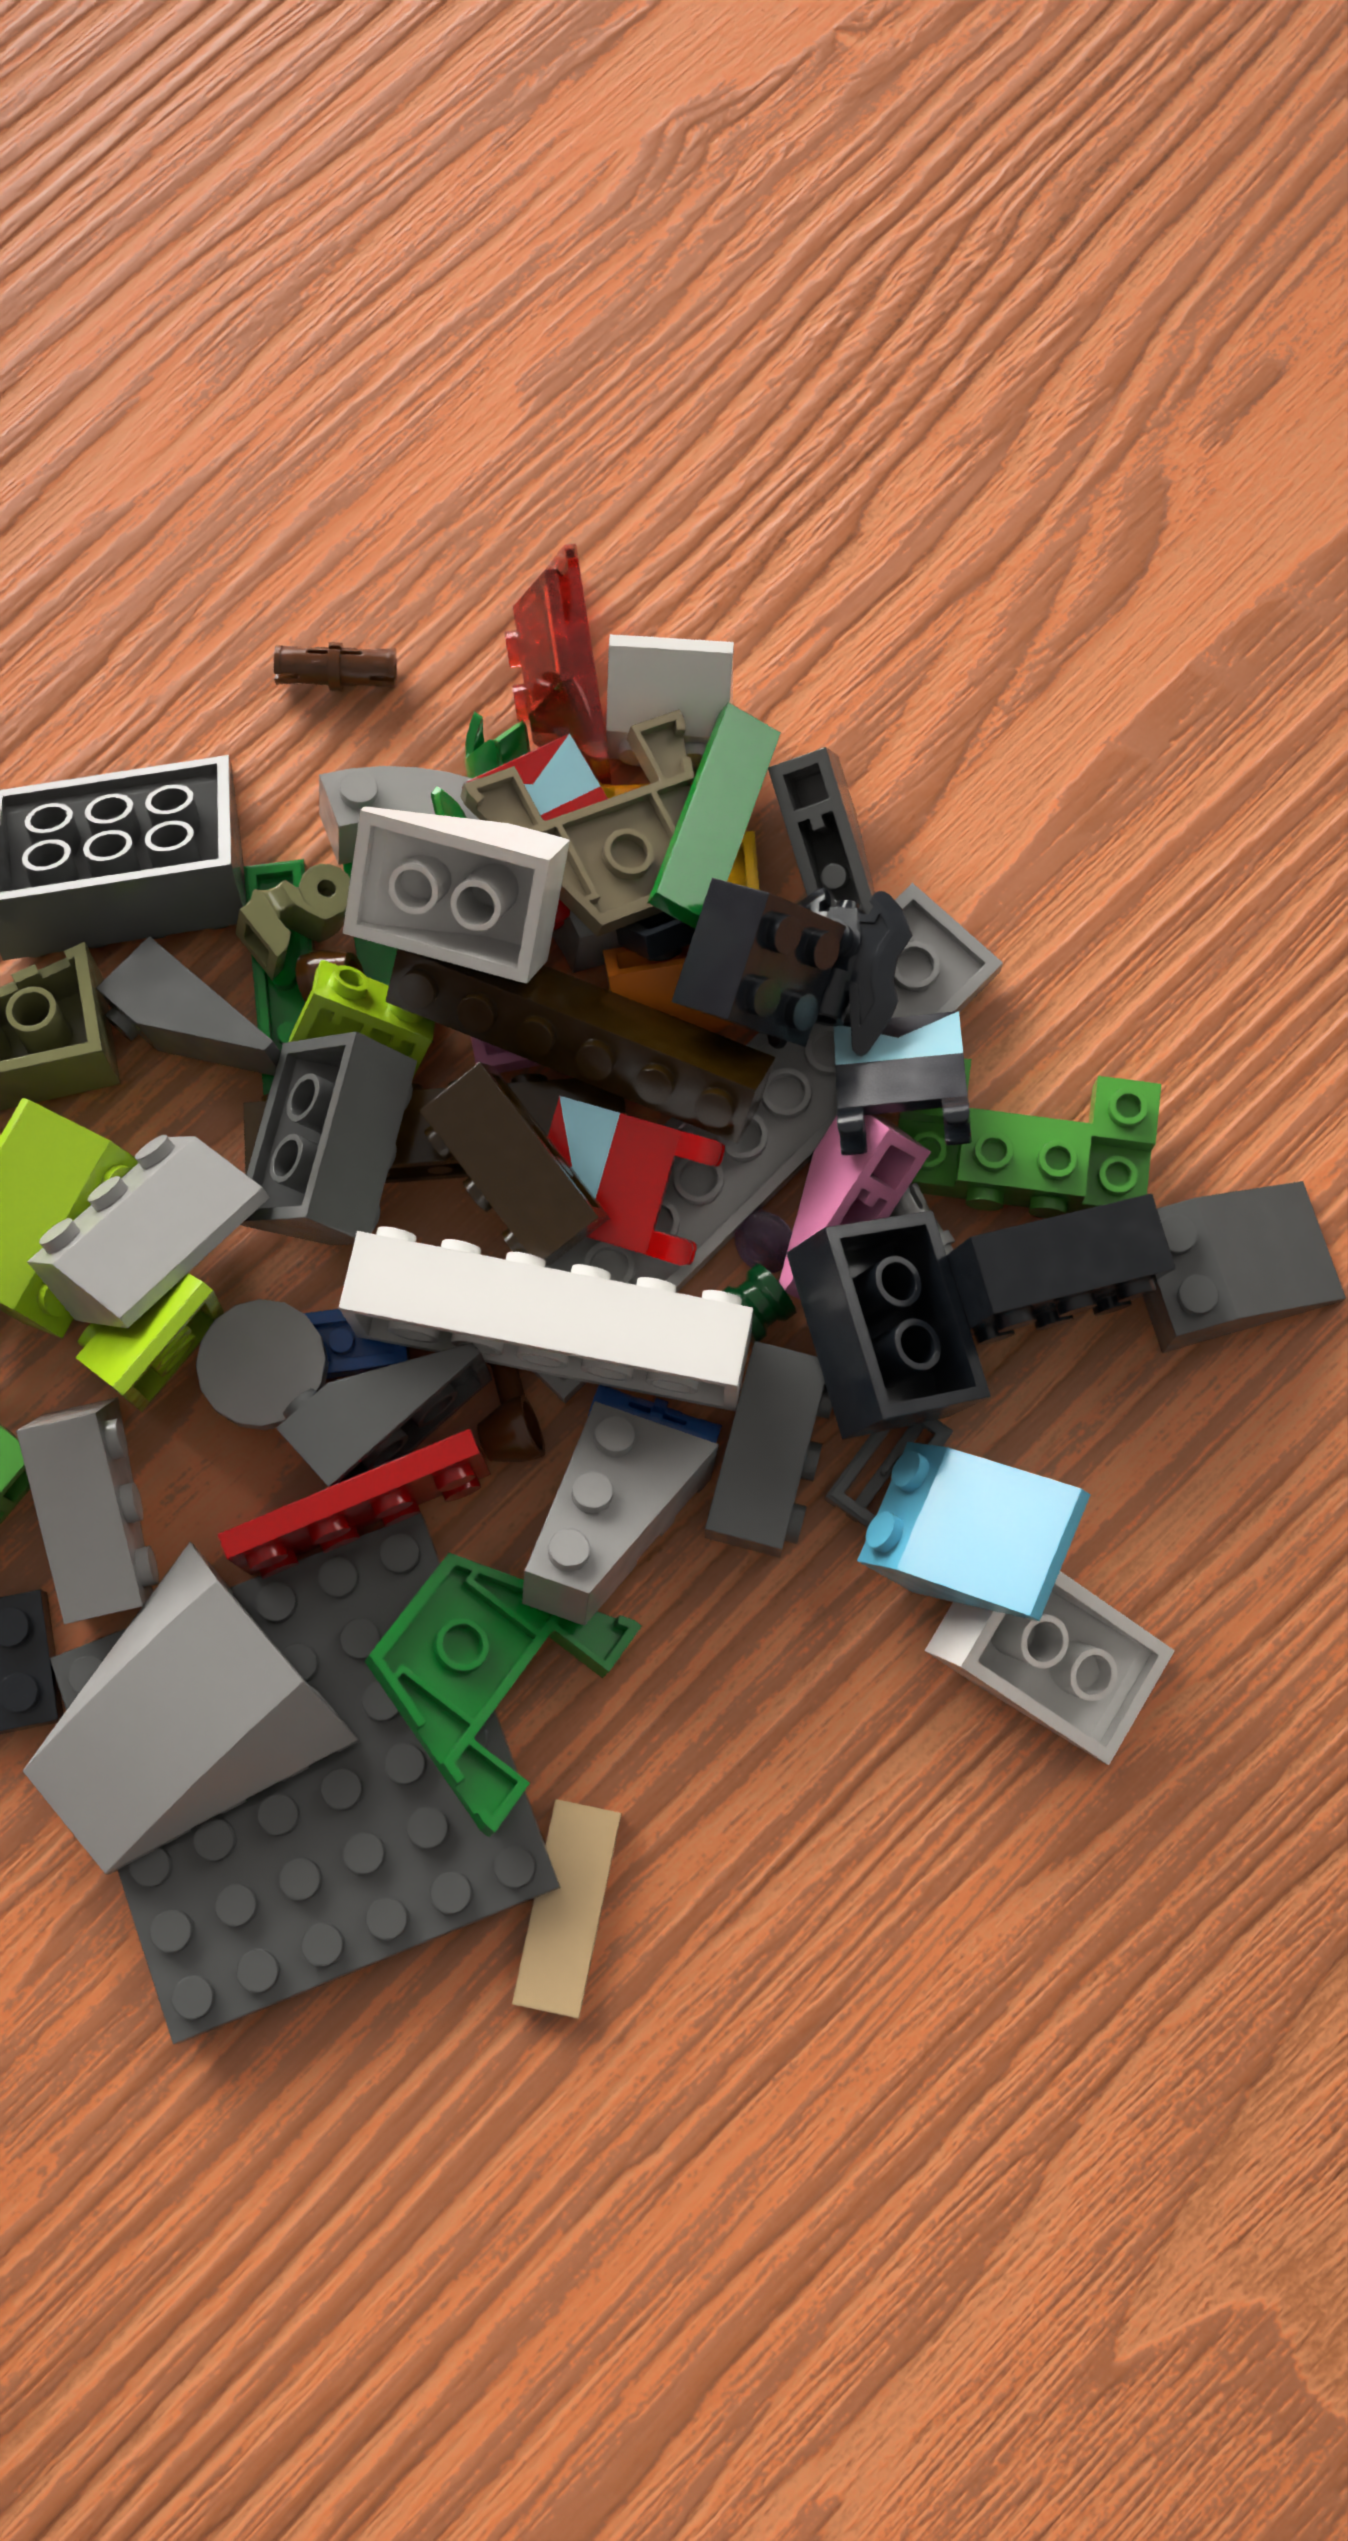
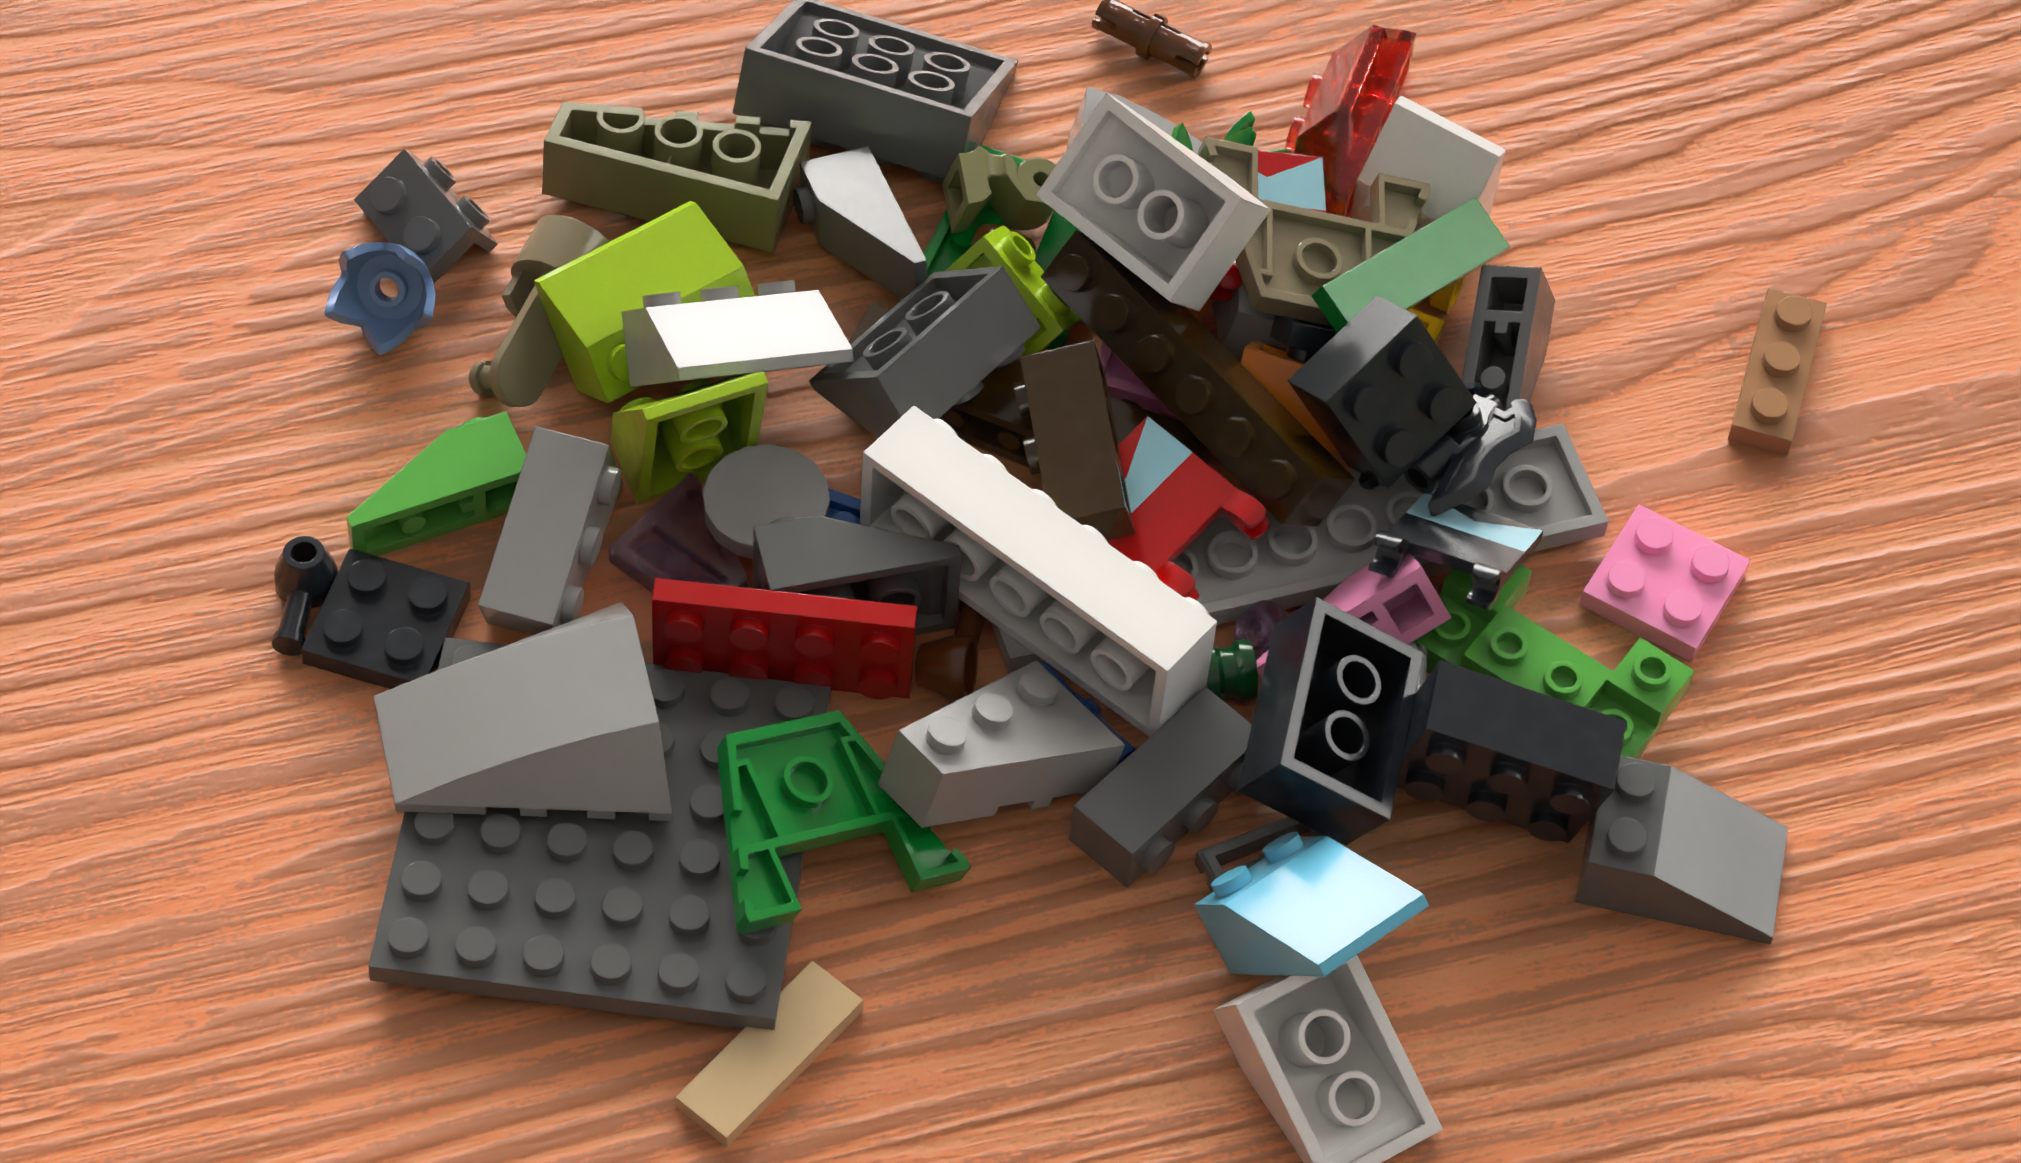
camera: 20 degrees right, 20 degrees down
(211, 1456) = (676, 543): none -> wing
(1059, 719) = (1777, 371): none -> medium nougat plate
(1076, 991) = (1664, 583): none -> bright pink plate

